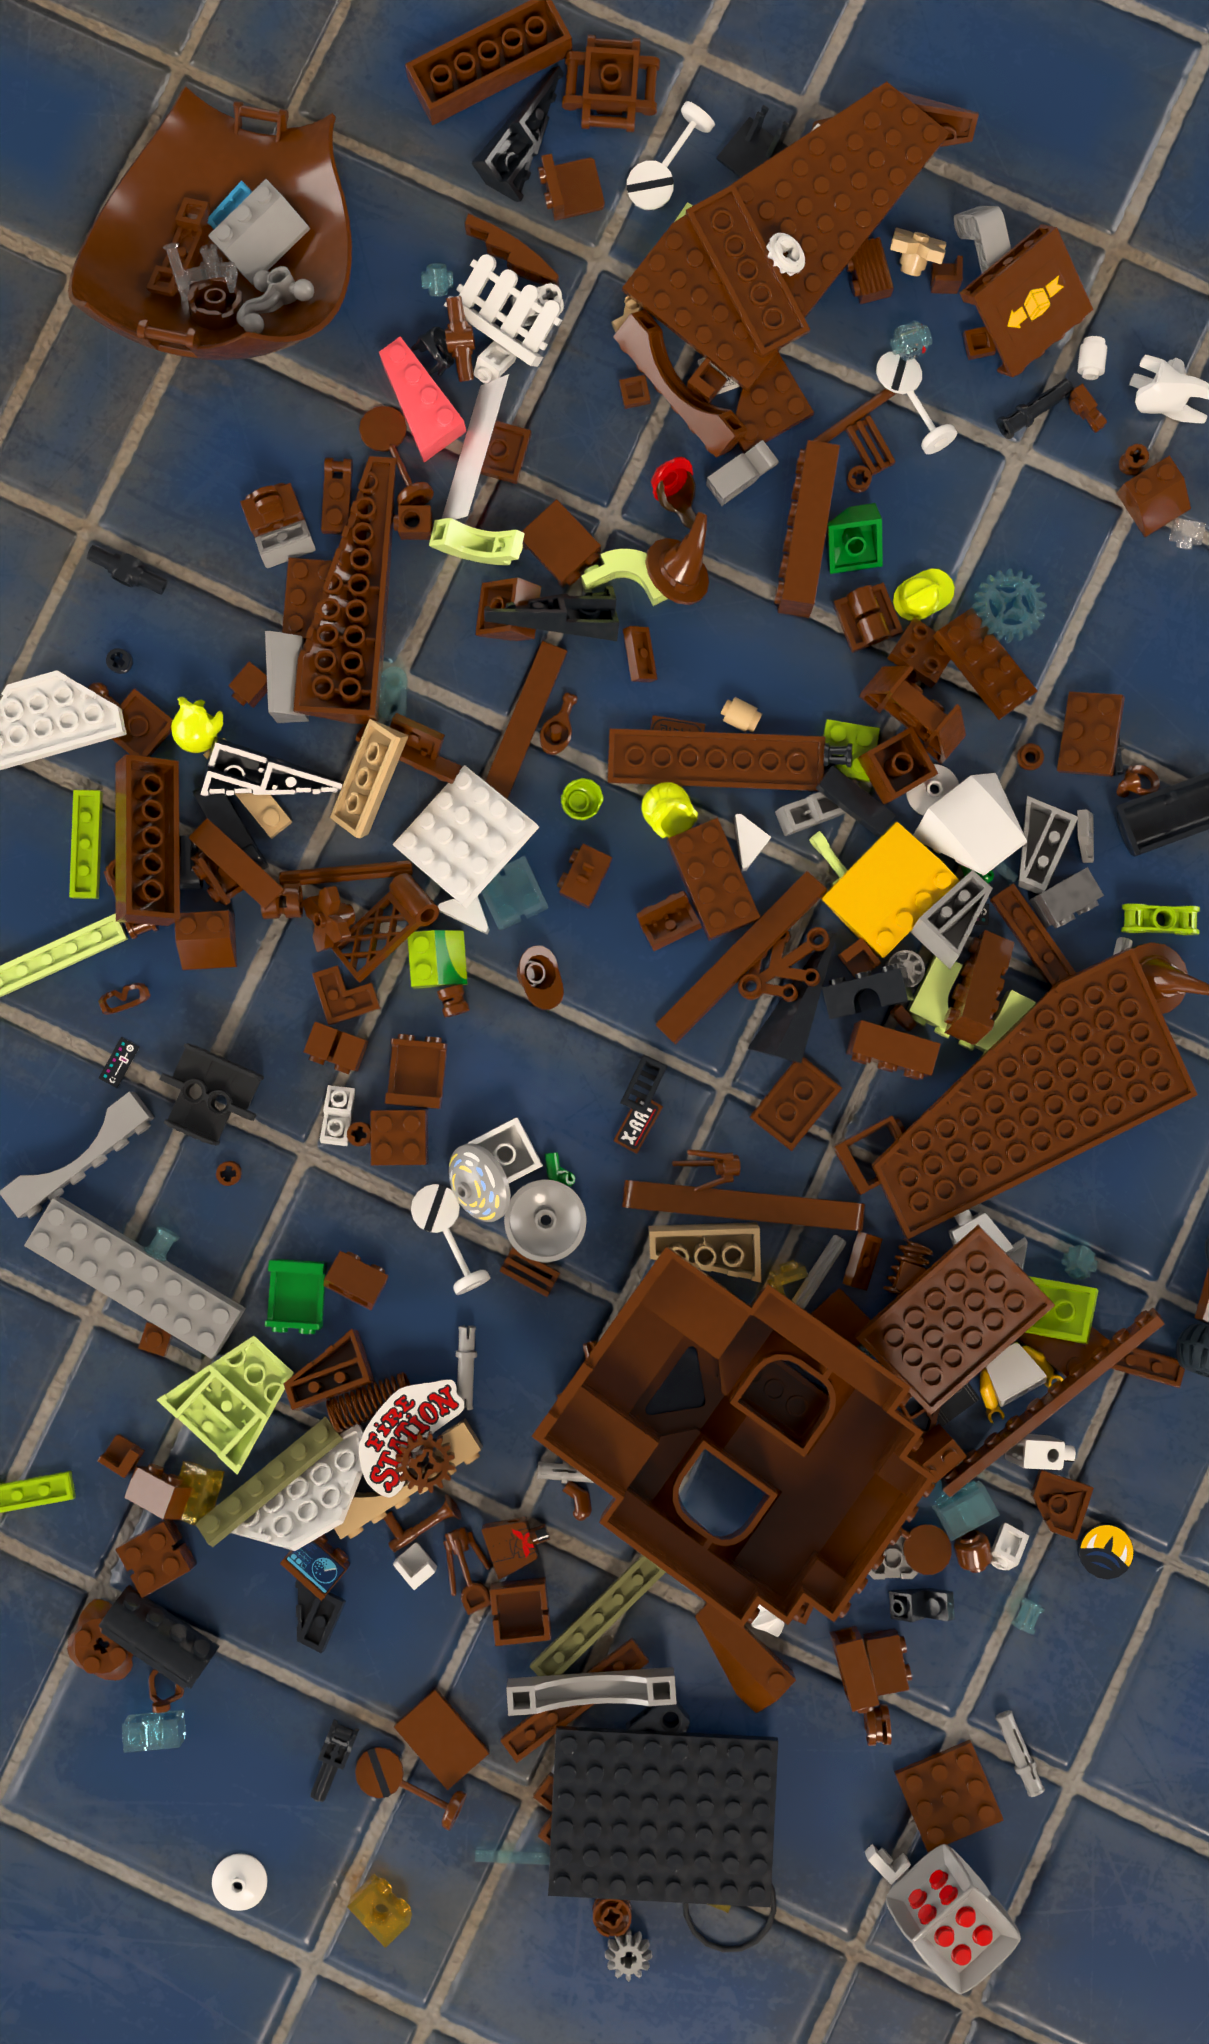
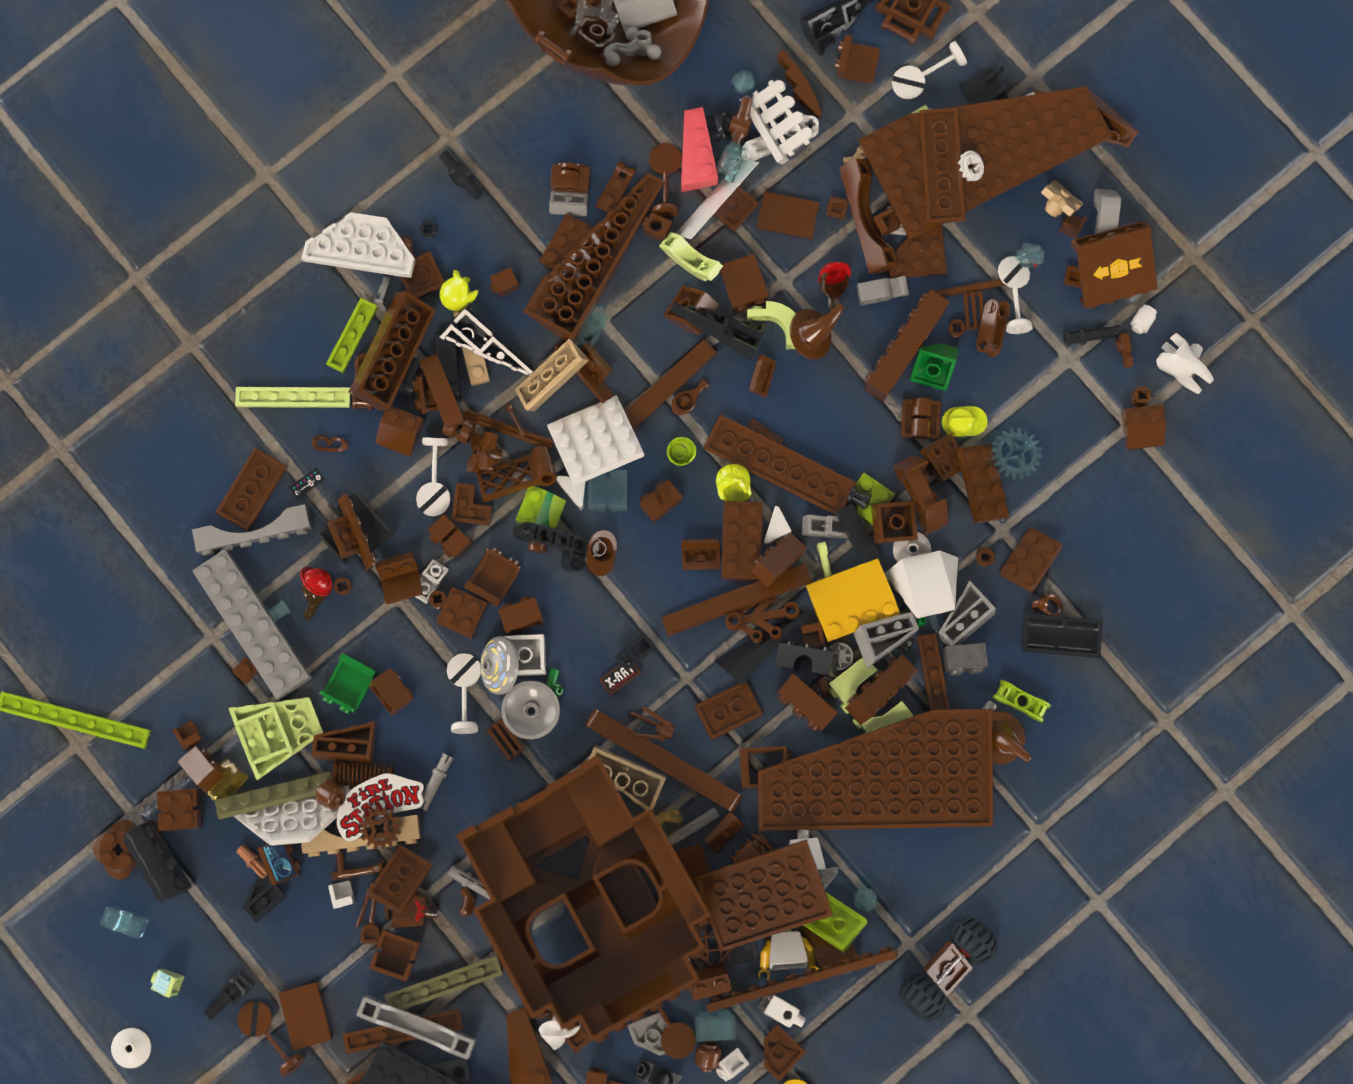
camera: 25 degrees right, 5 degrees down
(51, 1103) = (251, 489): none -> reddish brown tile
(101, 770) = (384, 289): none -> light grey tile
(160, 1705) = (136, 906): reddish brown piece -> none
(195, 1193) = (315, 587): none -> red piece
(205, 1106) = (349, 535): none -> reddish brown bracket
(246, 1782) = (167, 982): none -> slope
(279, 1576) = (252, 860): none -> nougat axle
(281, 664) = (527, 283): light grey slope -> none
(291, 1004) = (433, 497): none -> white piece
(297, 1130) = (399, 578): none -> reddish brown bracket
(334, 845) = (509, 408): none -> reddish brown hinge
(341, 1450) = (330, 795): none -> reddish brown head
(469, 993) = (550, 541): none -> black beam
(470, 391) = (730, 161): none -> clear light blue cylinder
(476, 1106) = (521, 615): none -> reddish brown brick
(481, 1515) = (400, 879): none -> reddish brown plate
(575, 430) = (787, 215): none -> reddish brown tile
(741, 715) = (809, 444): tan brick -> none
(772, 881) = (778, 559): none -> reddish brown brick
(870, 273) = (1024, 200): reddish brown brick -> none
(906, 455) = (992, 327): none -> reddish brown piece
(1086, 835) = (997, 623): light grey tile -> none
(1151, 1366) = (877, 988): reddish brown tile -> none
(1187, 533) = (1153, 460): clear plate -> none

